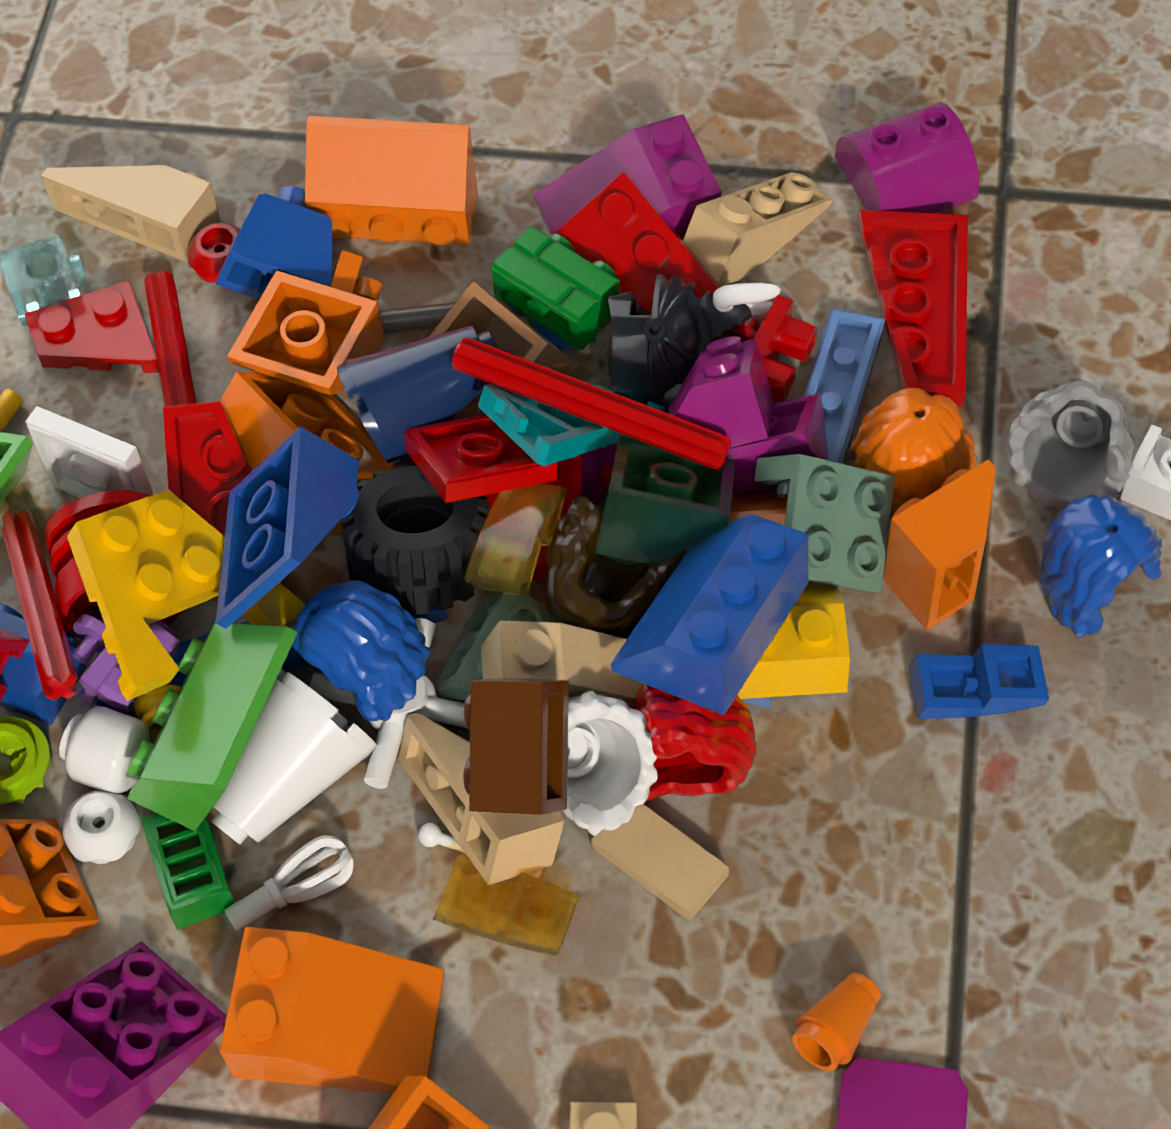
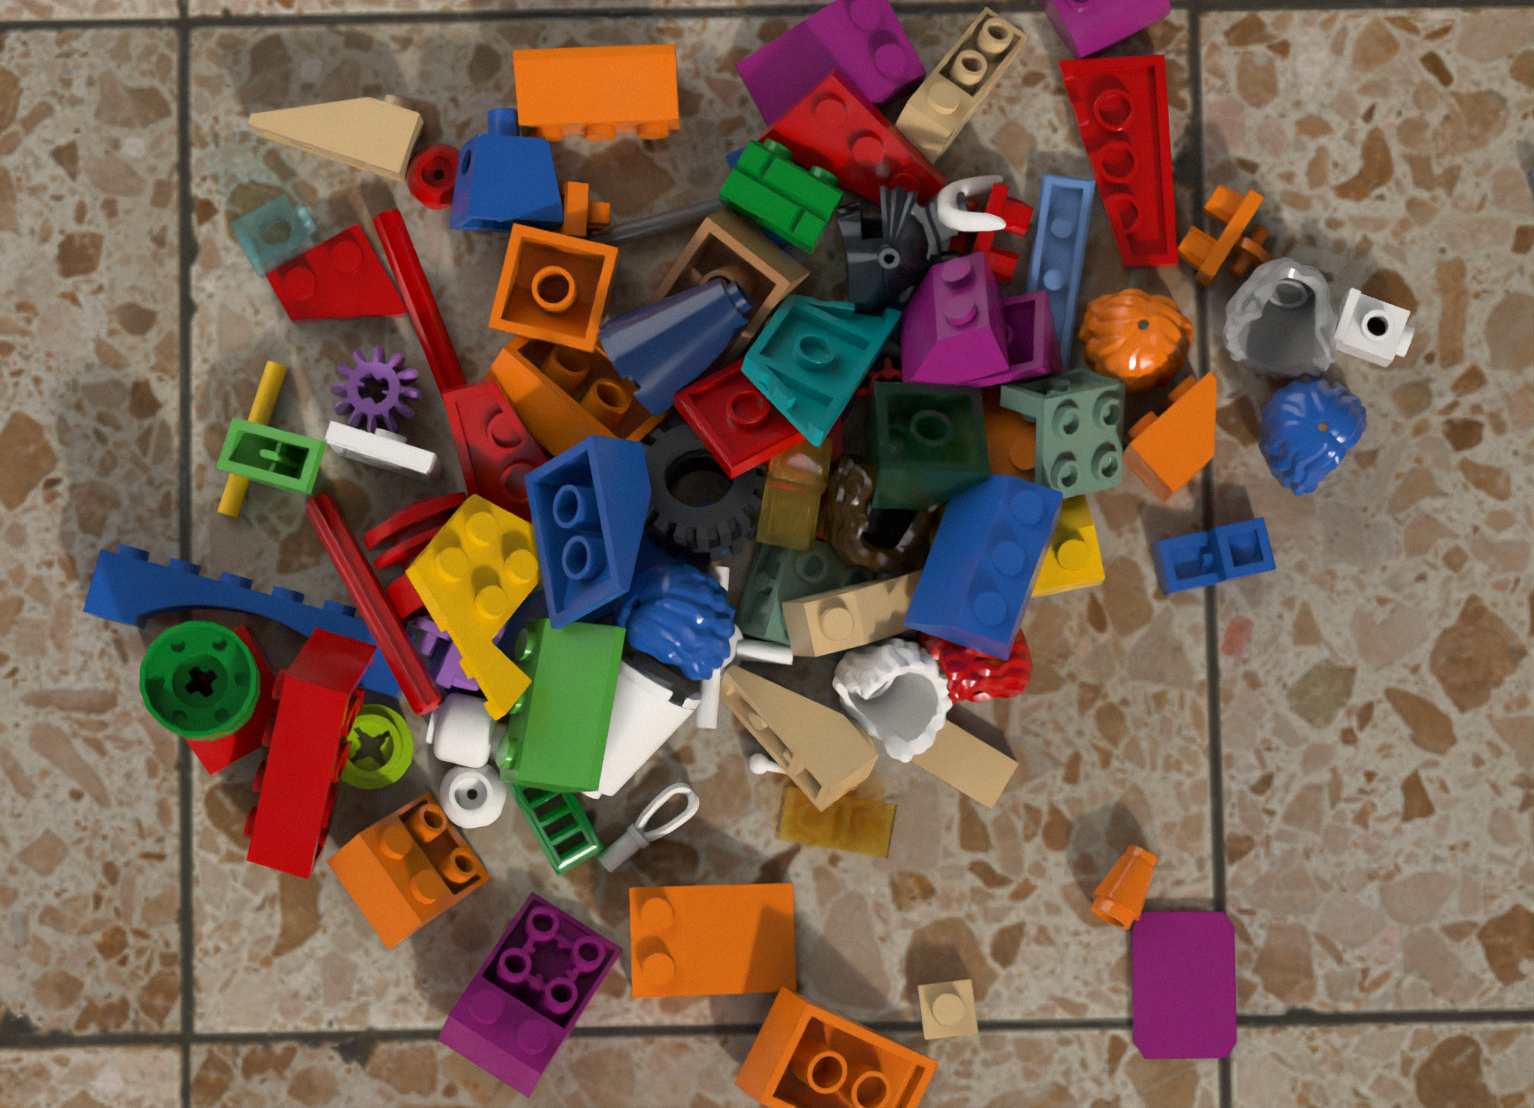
camera: 10 degrees left, 25 degrees up
(110, 409) = (385, 375): none -> medium lavender gear
(517, 745) = (838, 718): reddish brown piece -> none
(591, 403) = (845, 360): red axle -> none
(1028, 374) = (1234, 212): none -> orange hips

